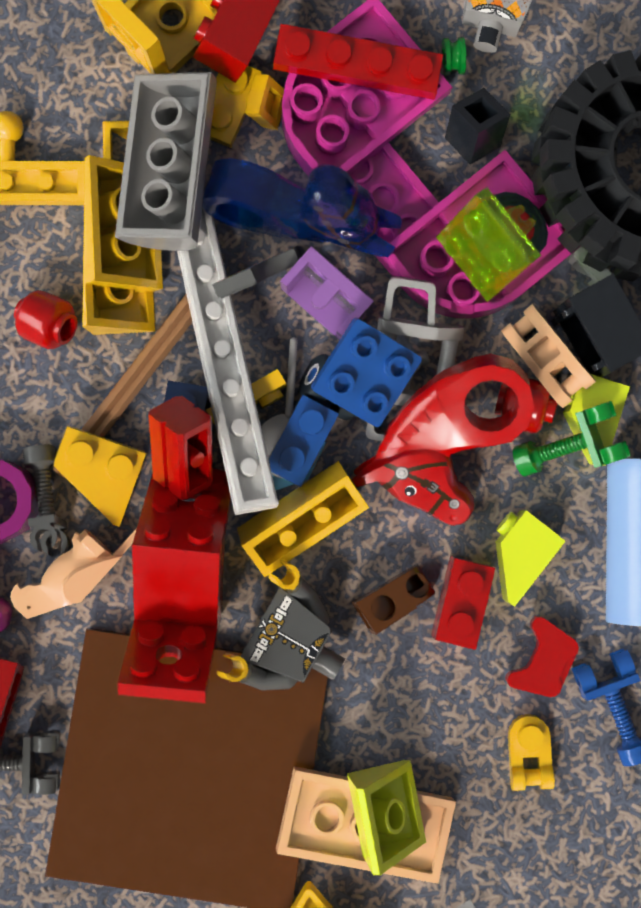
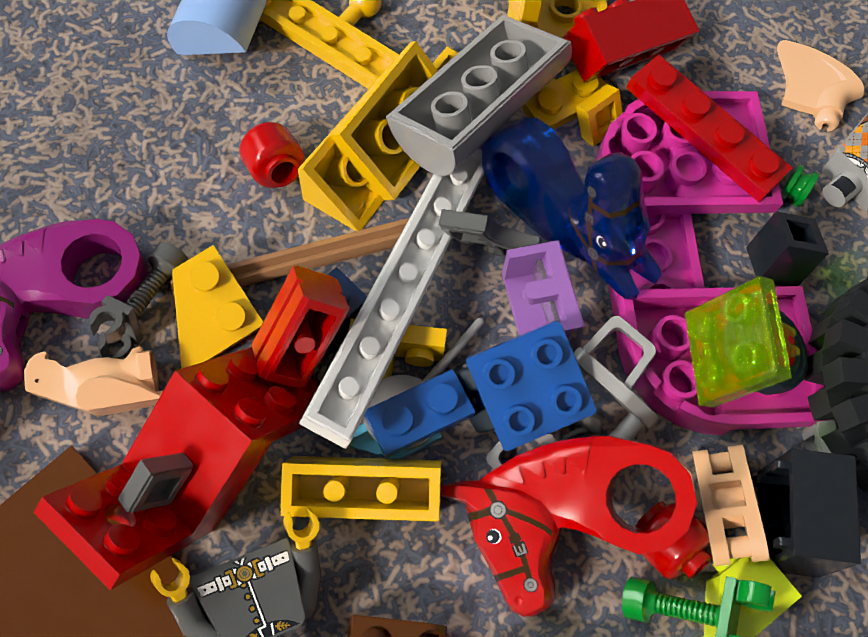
camera: 30 degrees right, 20 degrees down
(174, 619) = (155, 482): none -> tile

